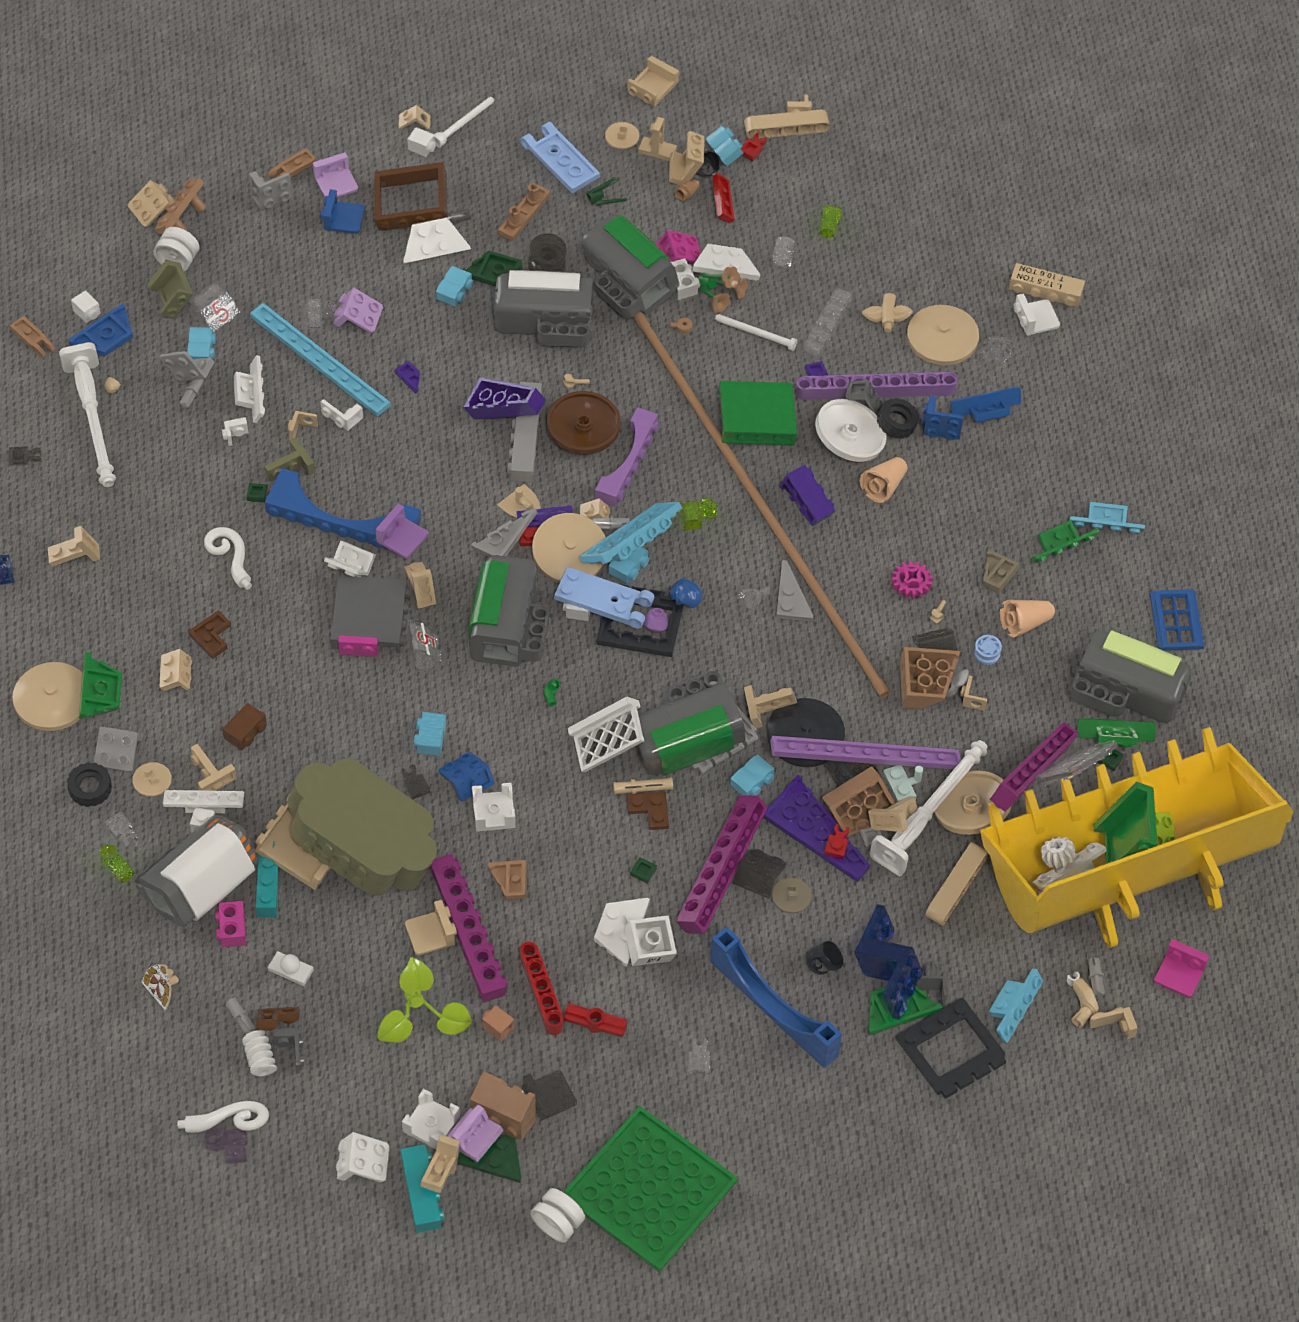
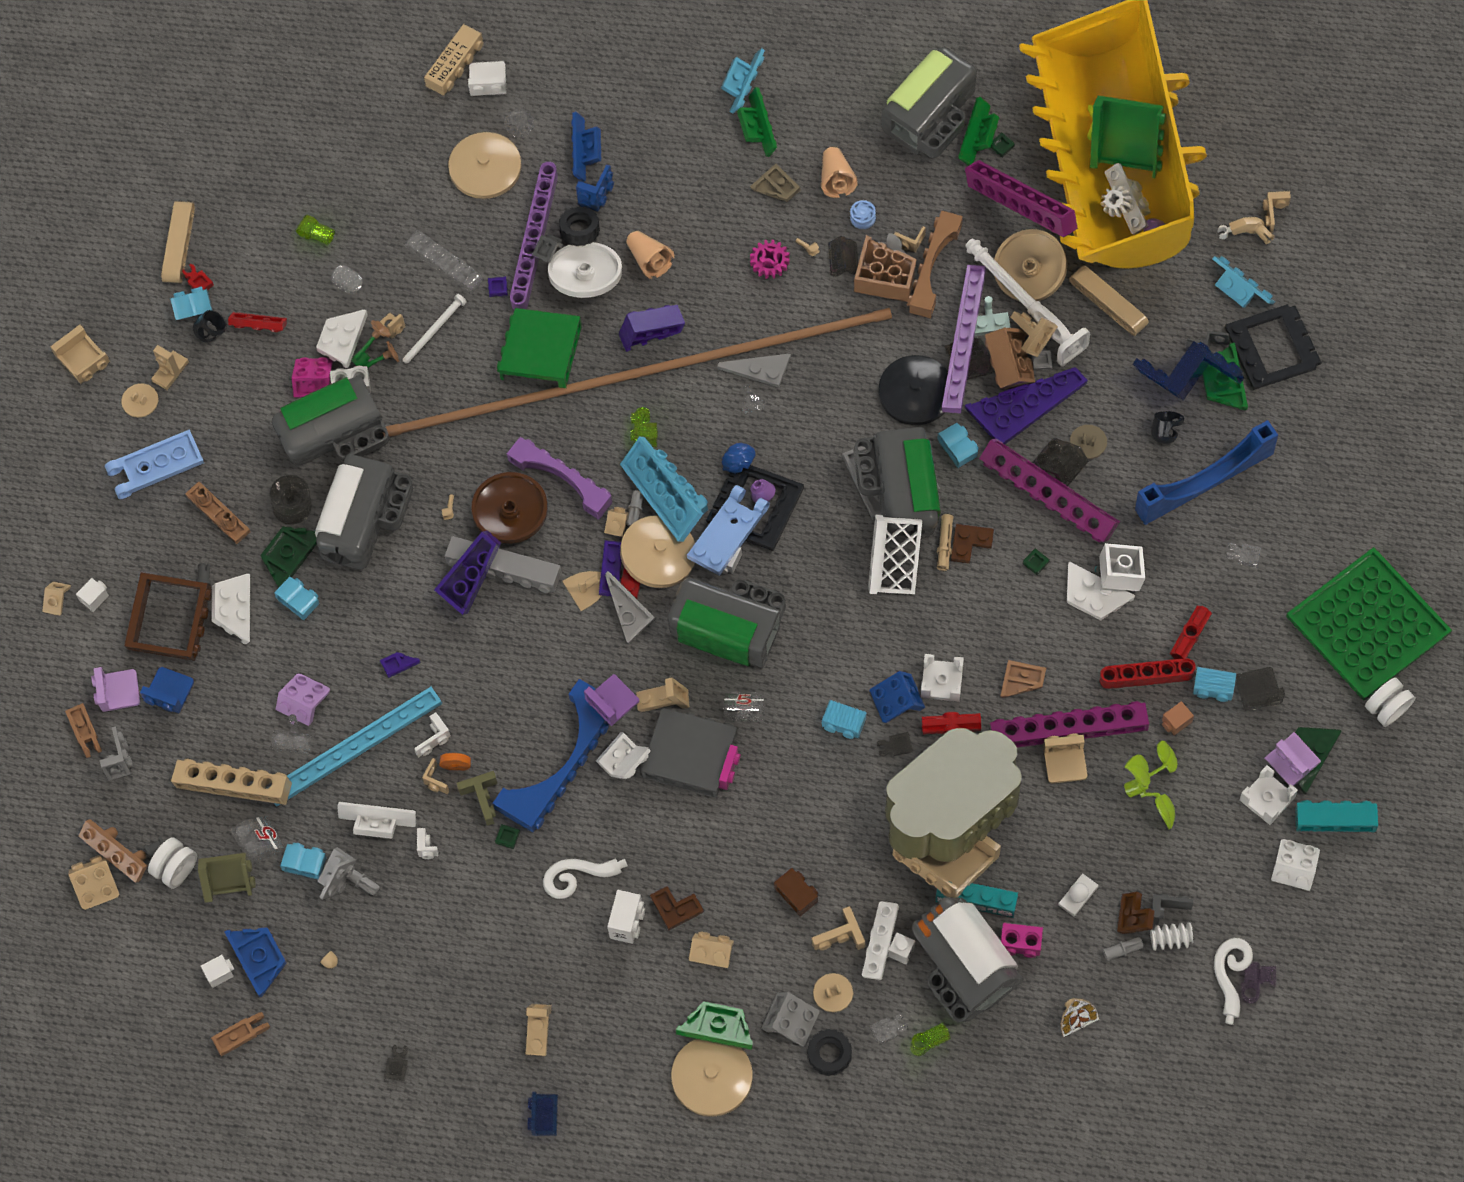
camera: 70 degrees left, 10 degrees up
(80, 360) = (342, 983): white piece -> none
(189, 591) = (625, 917): none -> white brick
(262, 275) = (277, 793): none -> tan brick
(318, 433) = (455, 761): none -> orange piece
(440, 138) = (89, 573): white piece -> none
(442, 1164) = (1325, 791): tan bracket -> none
(447, 825) = (950, 721): none -> red piece
(505, 1105) = (1270, 729): medium nougat wedge -> none
(544, 1051) = (1214, 684): none -> medium azure brick
(550, 690) = (817, 604): green arm -> none
(596, 194) = (215, 439): dark green plant -> none
(683, 325) = (406, 397): medium nougat piece -> none
(685, 191) = (236, 354): medium nougat cone -> none
(687, 164) = (205, 340): tan panel -> none
(748, 298) = (396, 325): none -> tan bracket
(767, 702) = (879, 414): tan bracket -> none
(799, 106) = (163, 225): tan bracket -> none
(837, 844) = (1049, 388): red plate -> none
(887, 312) = (446, 205): tan plant -> none
(990, 722) = (946, 229): none -> medium nougat arch
(1076, 762) = (1024, 162): clear plate -> none
(1096, 977) = (1226, 213): light grey axle -> none
(1181, 968) = (1233, 145): dark pink bracket -> none
(1194, 619) = (865, 67): blue piece -> none

